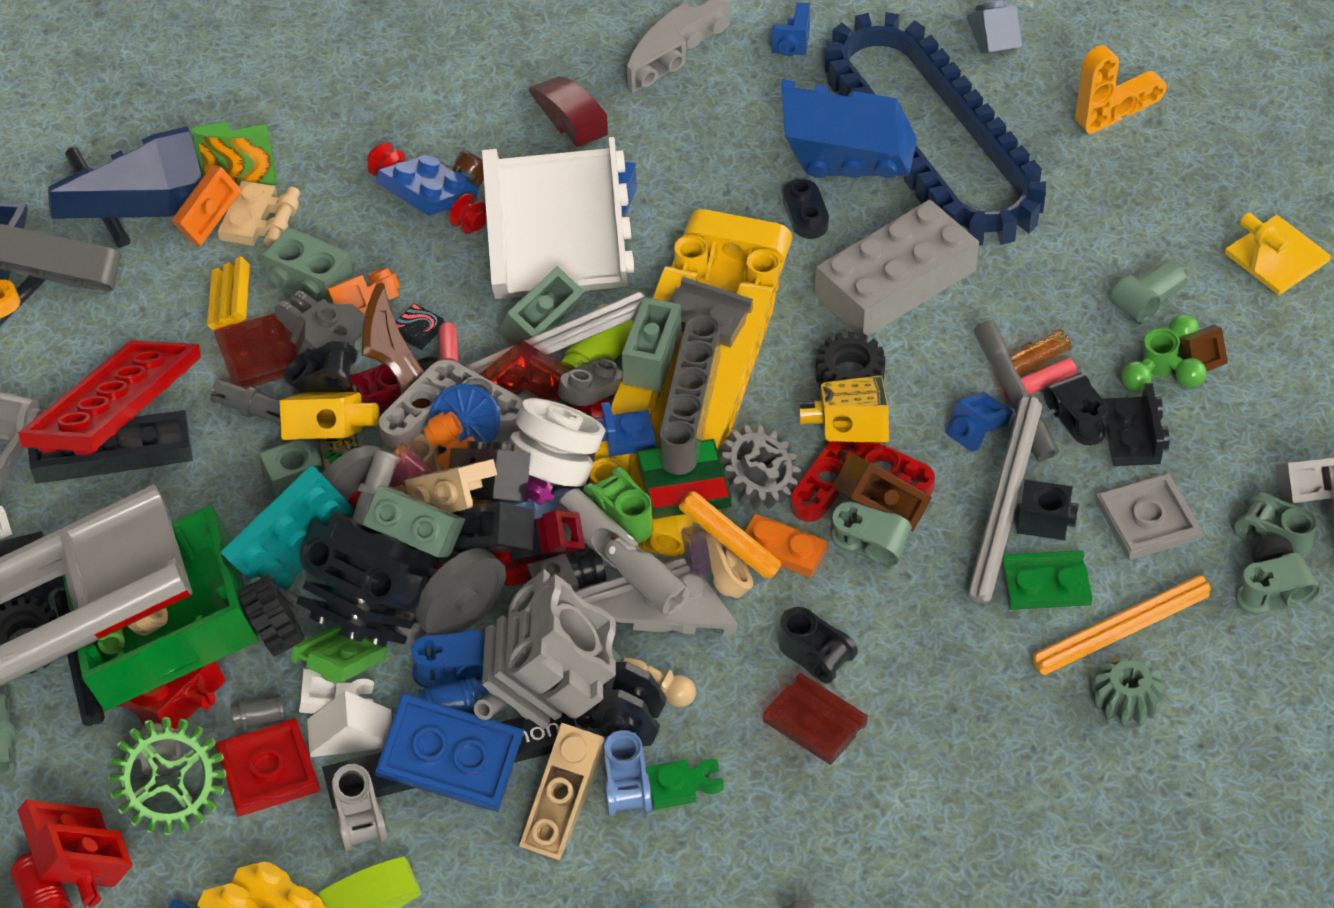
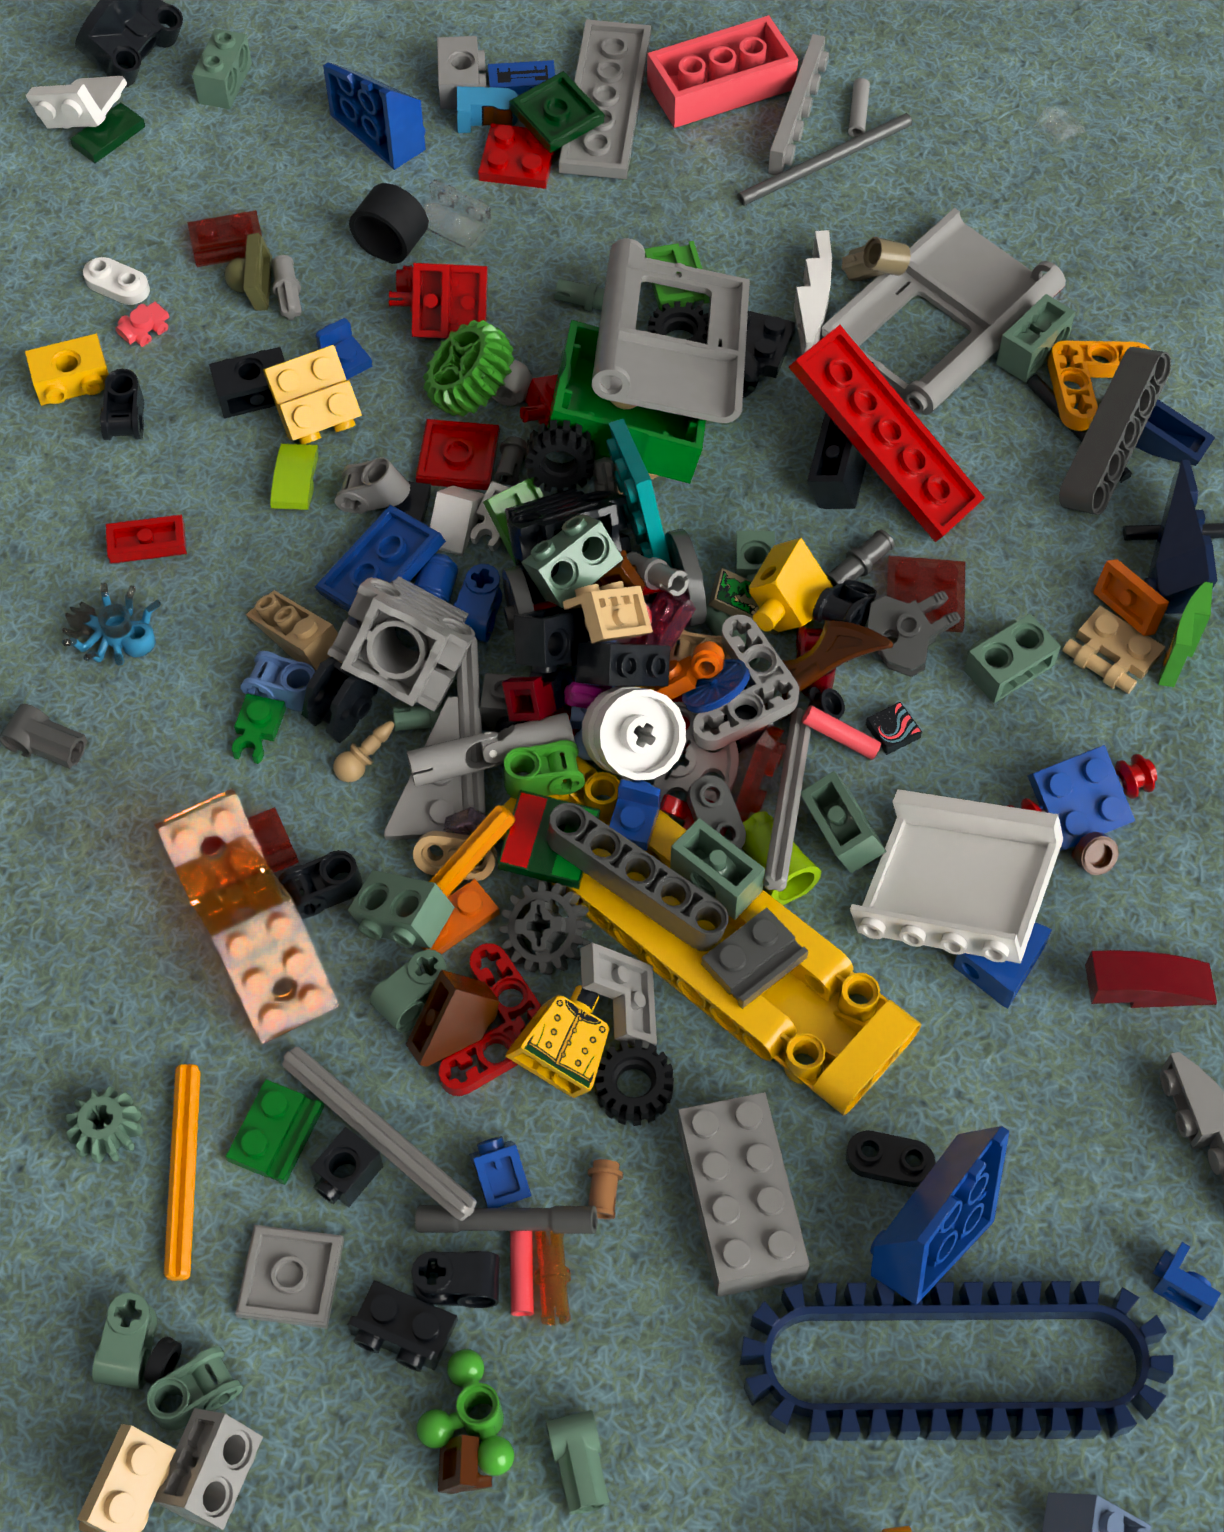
camera: 115 degrees right, 10 degrees up
(223, 297) = (1006, 586): yellow tile -> none
(356, 291) = (948, 682): orange plate -> none
(783, 395) = (630, 987): none -> light grey plate
(799, 562) = (401, 909): none -> sand green brick
(890, 655) = (247, 916): none -> clear orange bracket
(946, 354) = (603, 1187): none -> medium nougat pin

